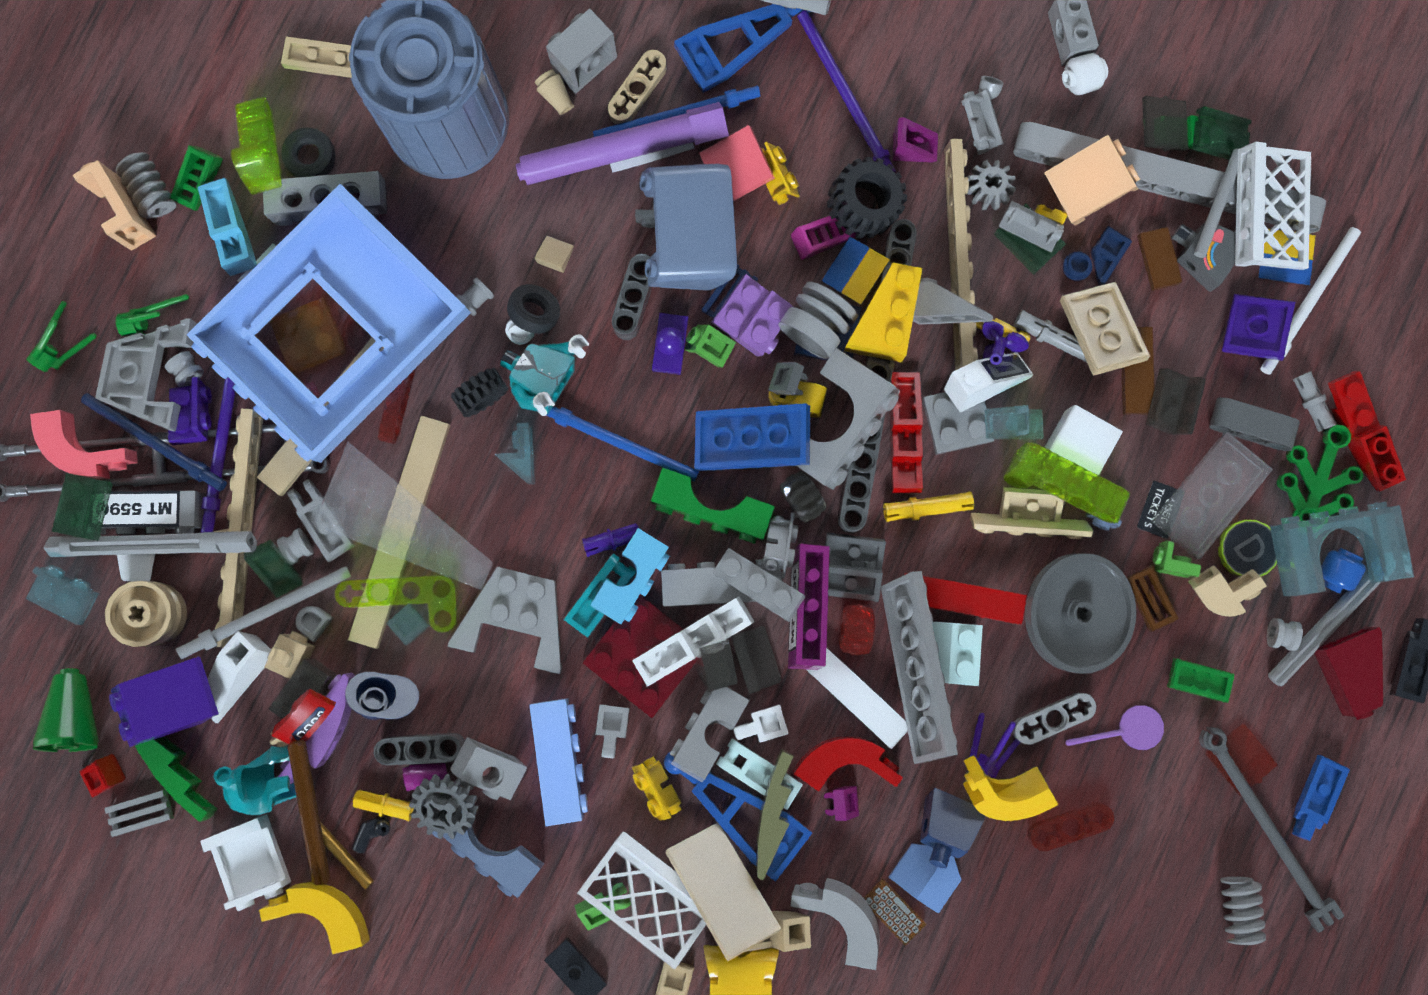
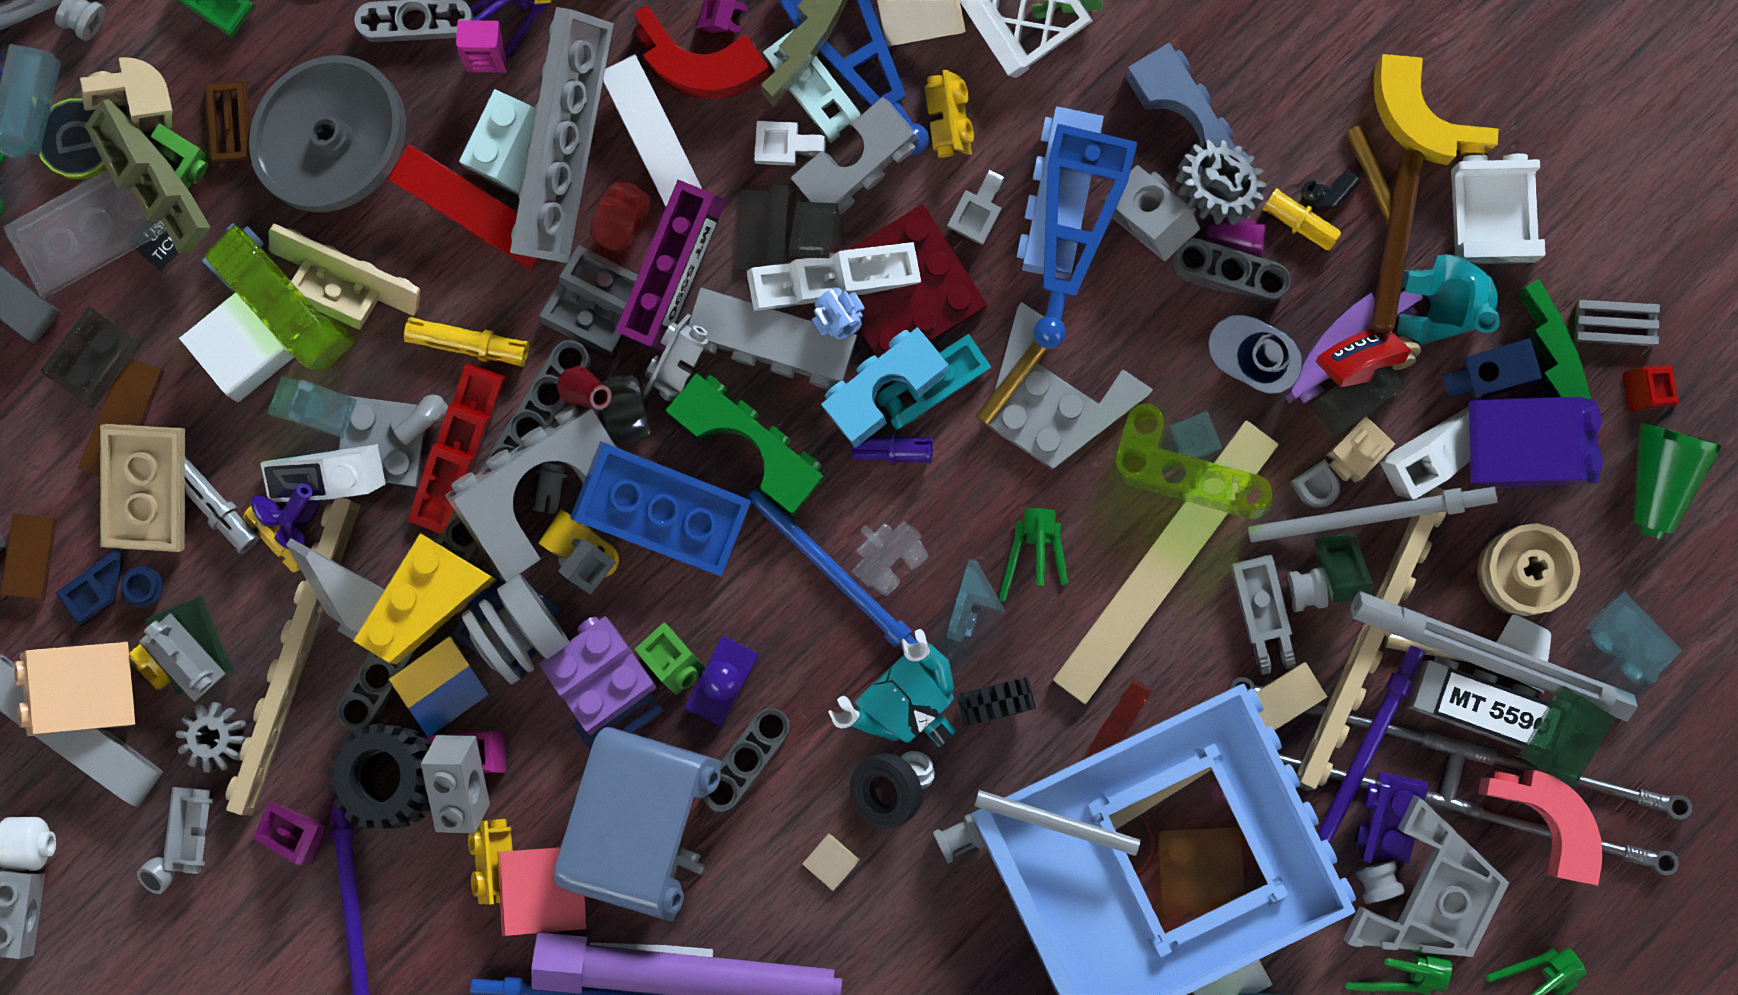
camera: 165 degrees left, 0 degrees up
(197, 469) = (1401, 734): dark blue bar -> none
(199, 750) = (1513, 367): none -> dark blue torso
(383, 515) = (1176, 583): clear wing -> none
(406, 319) = (1057, 822): none -> light grey bar
(491, 521) = (1039, 528): none -> green plant
(543, 622) = (1010, 383): none -> pearl gold bar
(545, 792) = (1090, 155): none -> blue plate
(592, 466) = (883, 550): none -> clear hips
(679, 613) = (838, 313): none -> light blue gear
(758, 584) = (724, 313): light grey plate -> none
(818, 207) = (455, 784): none -> light grey brick
(833, 429) = (550, 485): none -> light grey pin
(835, 497) = (583, 389): none -> dark red cone
(935, 446) = (428, 411): none -> light grey arm
(1000, 713) = (481, 46): none -> dark pink slope
(1199, 541) = (141, 167): none -> olive slope

